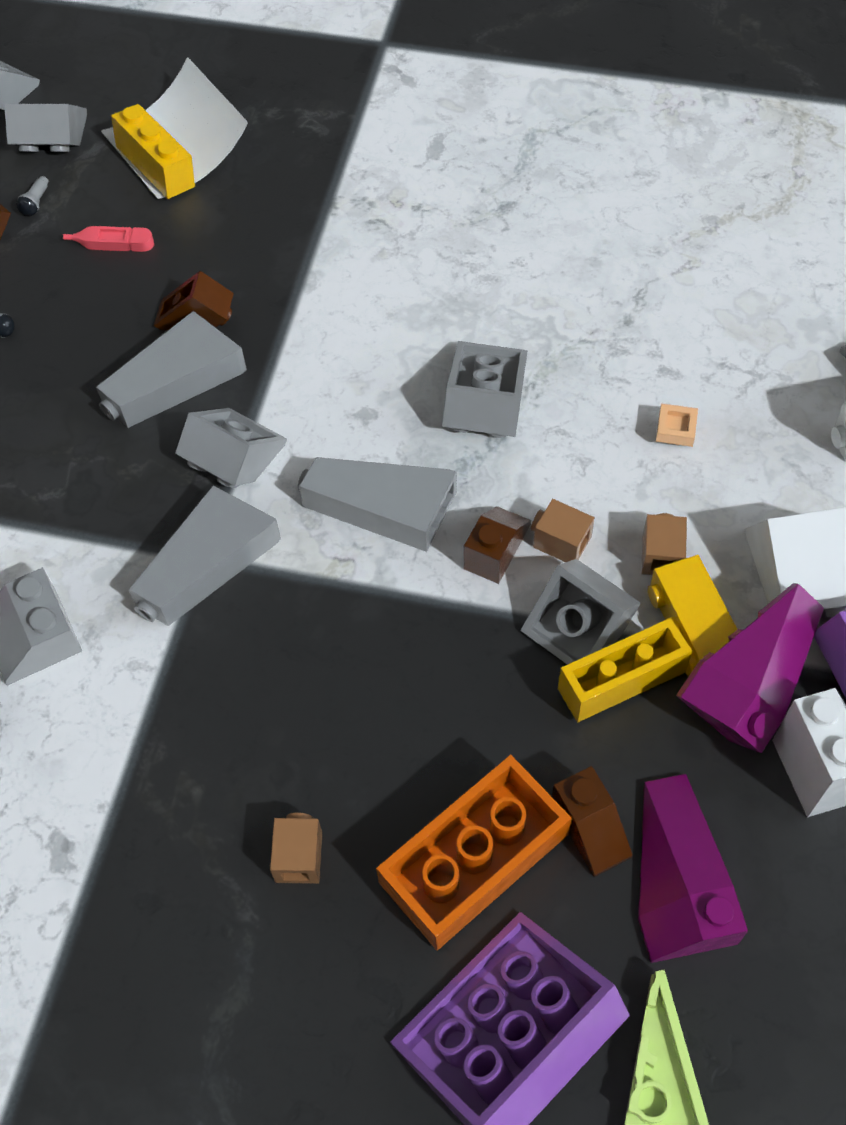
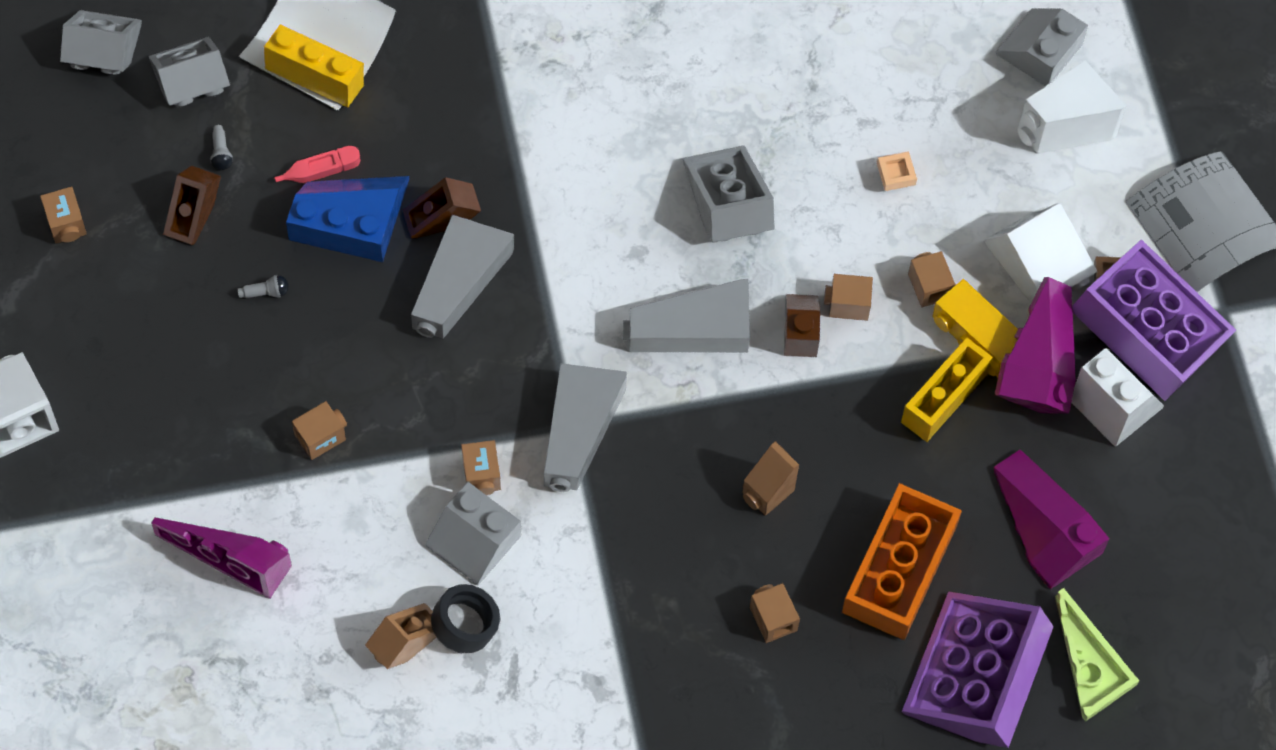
camera: 30 degrees left, 5 degrees up
(77, 562) = (481, 466): none -> medium nougat brick
(104, 286) = (347, 215): none -> blue wedge
(228, 445) = (546, 324): light grey slope -> none
(368, 694) = (770, 480): none -> medium nougat slope
(579, 613) = (893, 359): light grey slope -> none
(594, 821) = (979, 512): reddish brown slope -> none

